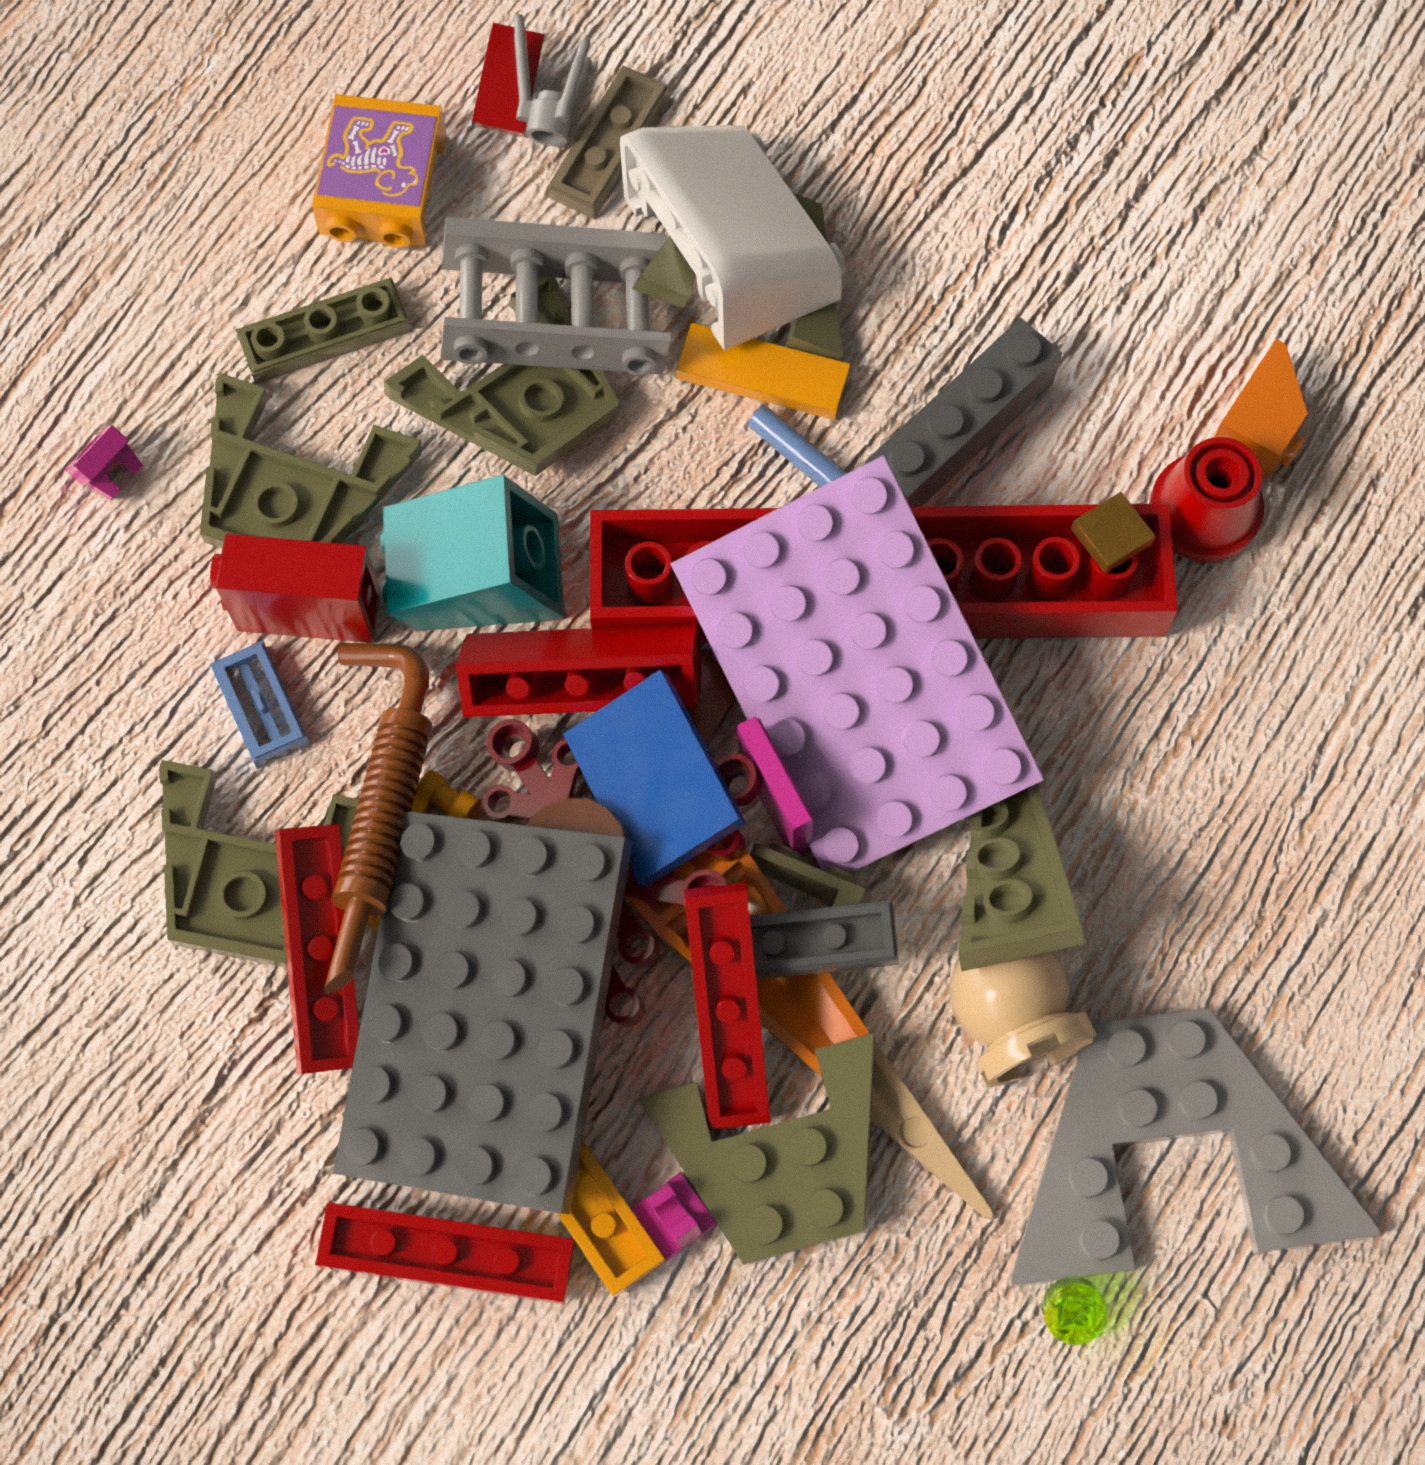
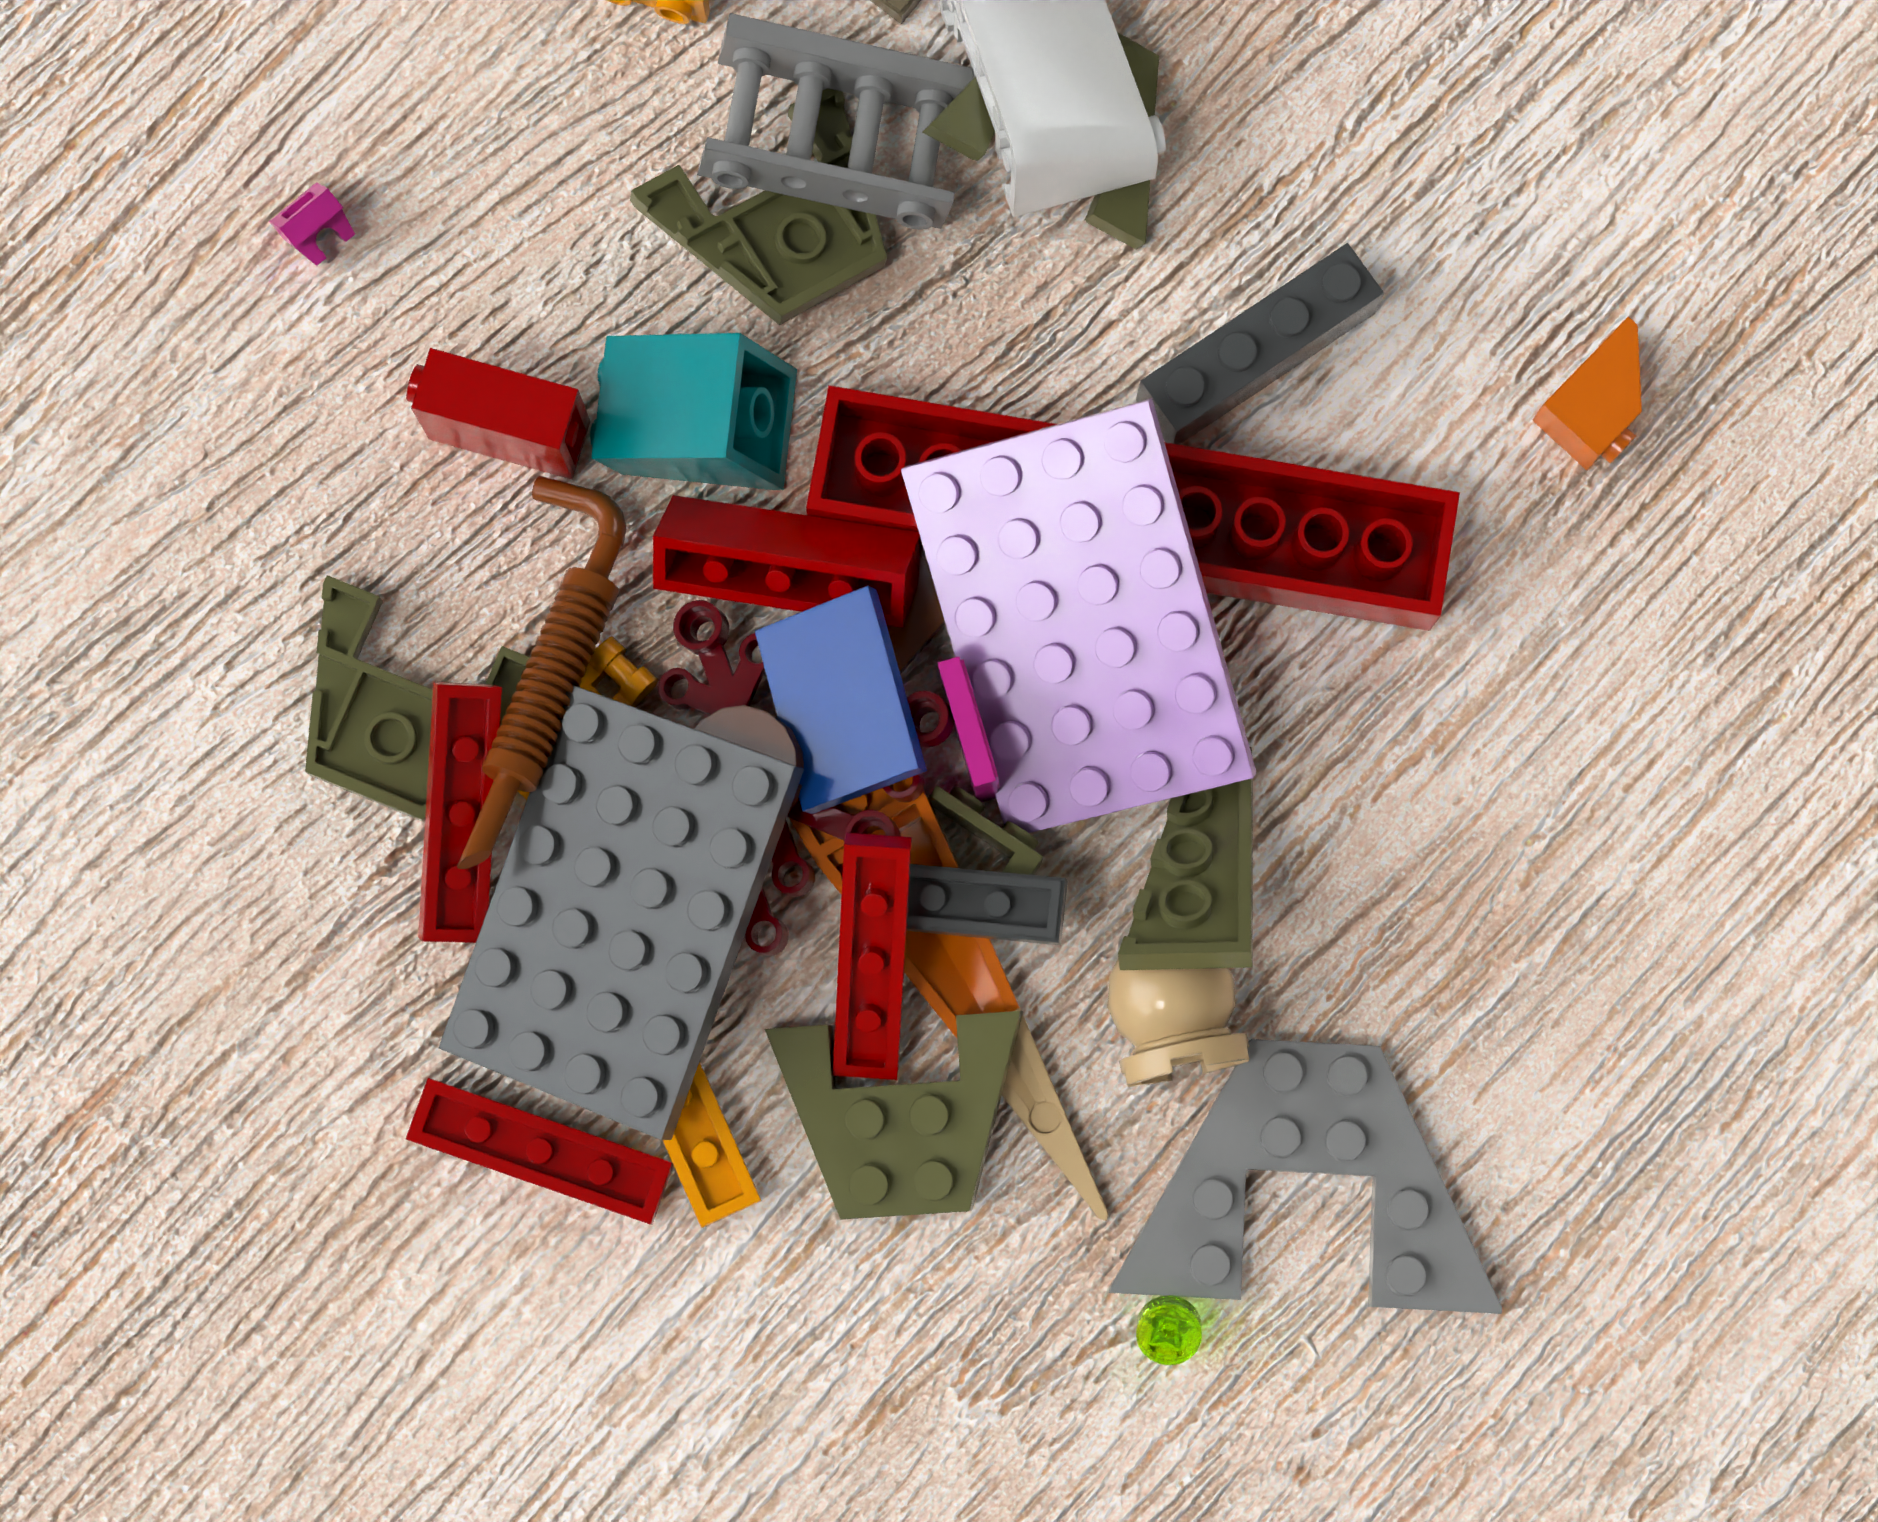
camera: 10 degrees right, 10 degrees up
(278, 745) = (453, 578): medium blue tile -> none
(282, 495) = (497, 304): olive wing -> none
(353, 322) = (615, 99): olive tile -> none
(673, 1216) = (778, 1157): dark pink tile -> none
(764, 372) = (1055, 246): light orange tile -> none
(794, 447) = (1078, 350): medium blue piece -> none
(1113, 532) = (1389, 516): pearl gold tile -> none
(1206, 519) = (1494, 511): red piece -> none

